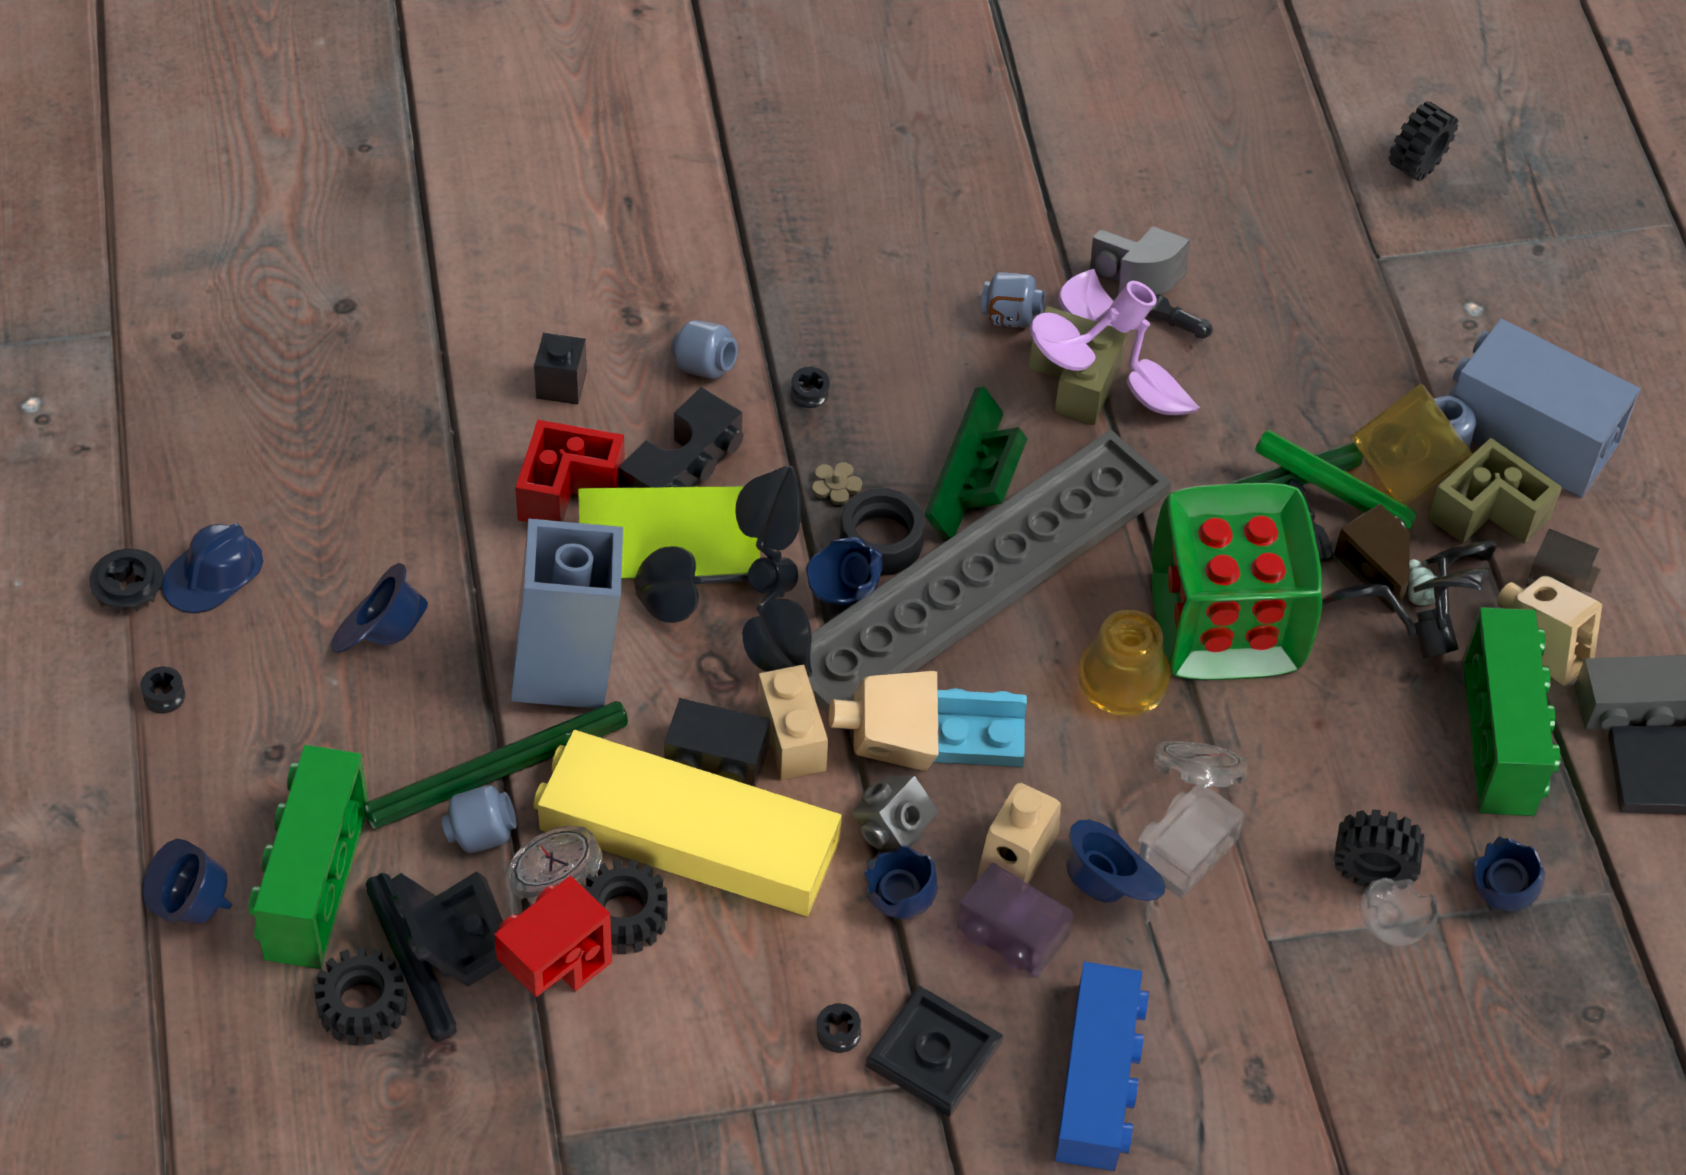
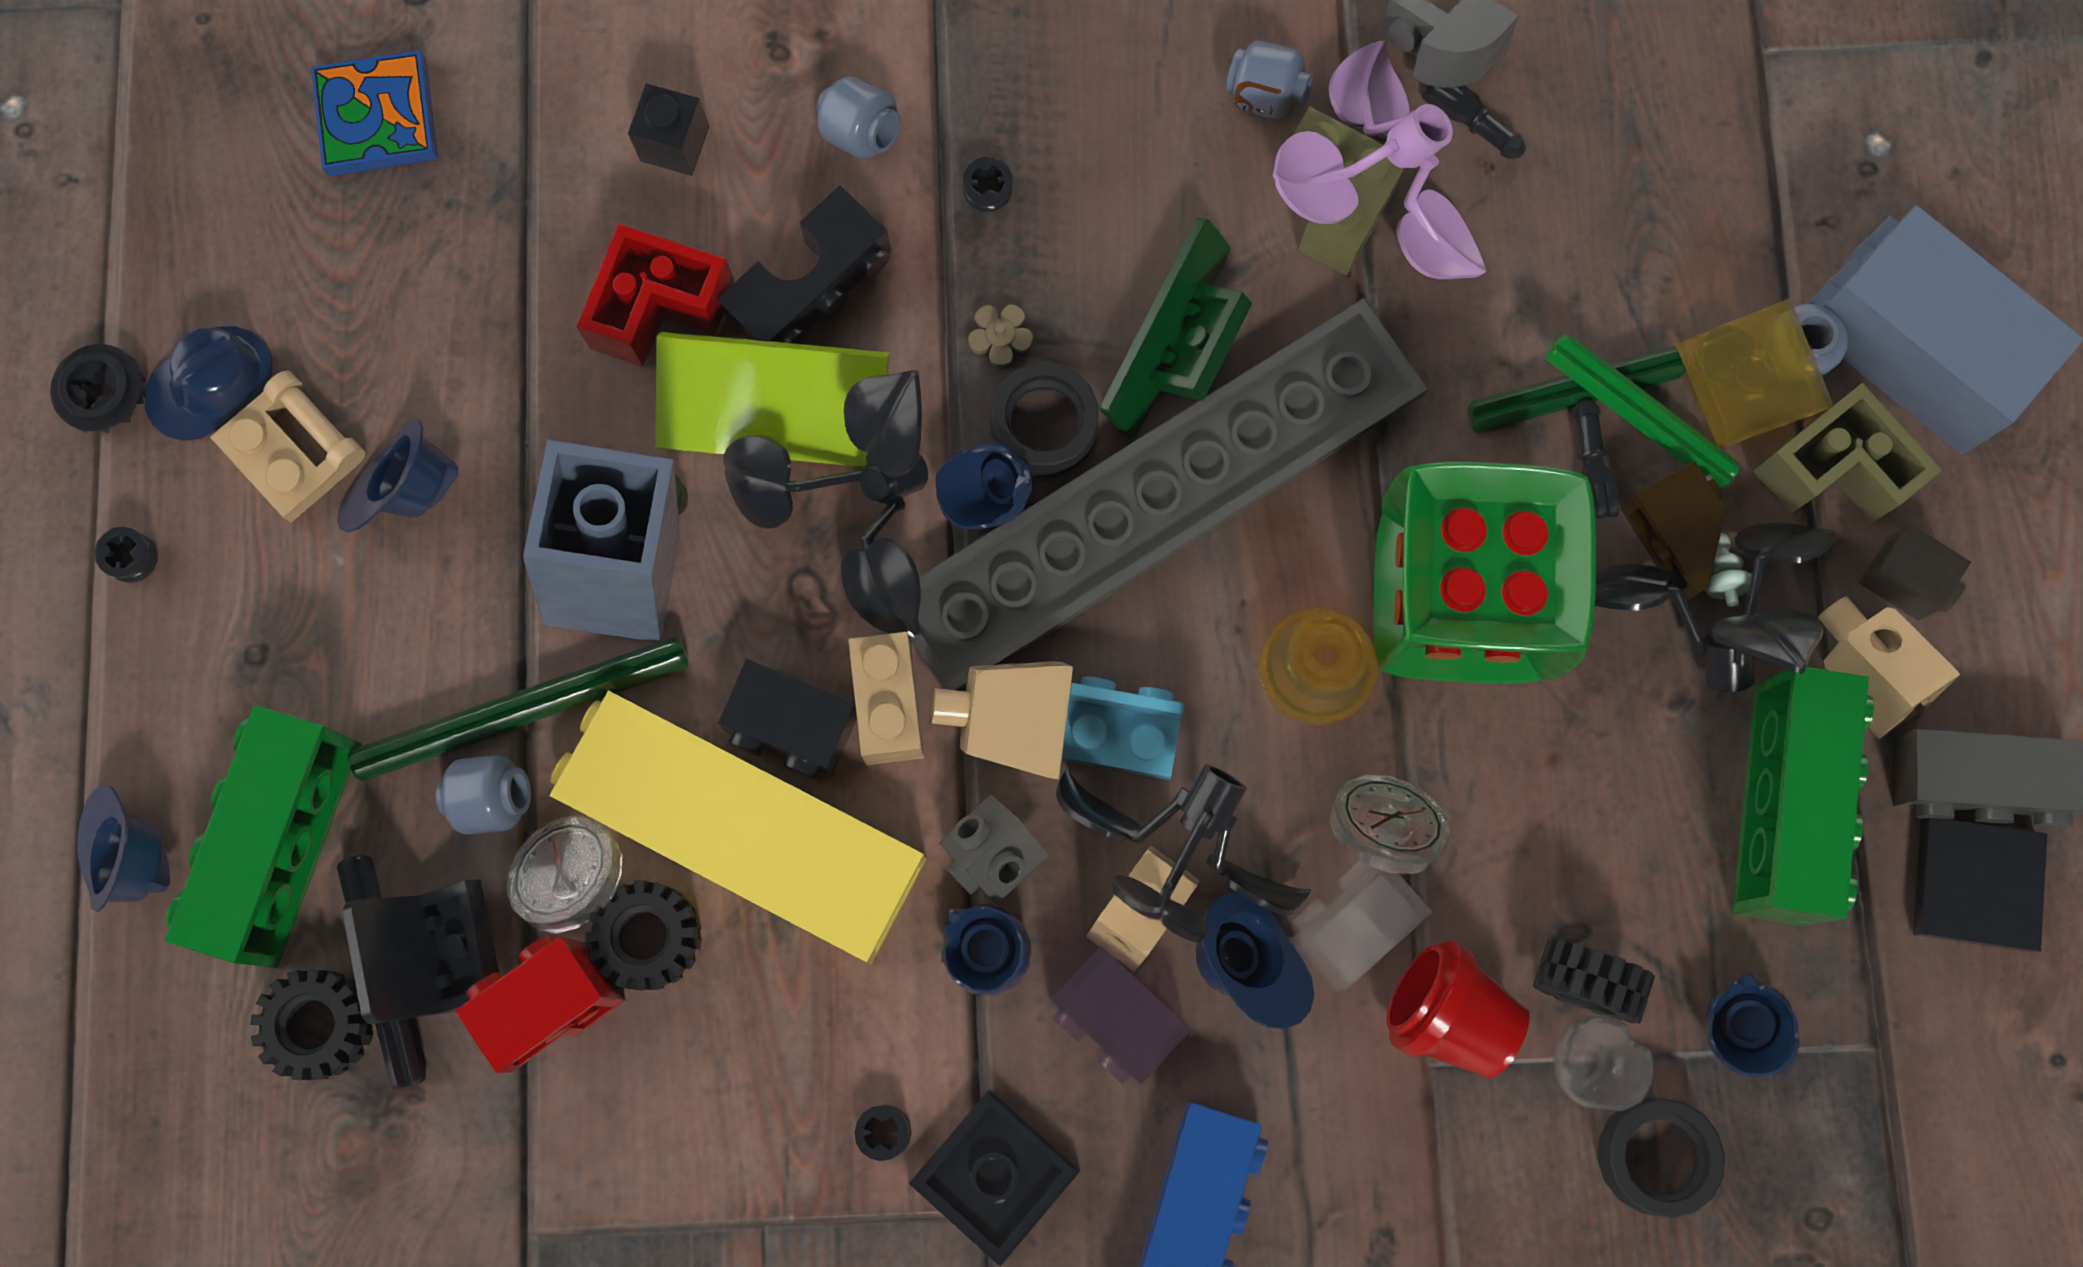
camera: 10 degrees right, 25 degrees up
(275, 615) = (274, 459): none -> tan plate
(324, 382) = (374, 113): none -> tile
(1057, 746) = (1206, 809): none -> black plant
(1278, 883) = (1456, 1013): none -> red piece
(1473, 946) = (1708, 1158): none -> black tyre

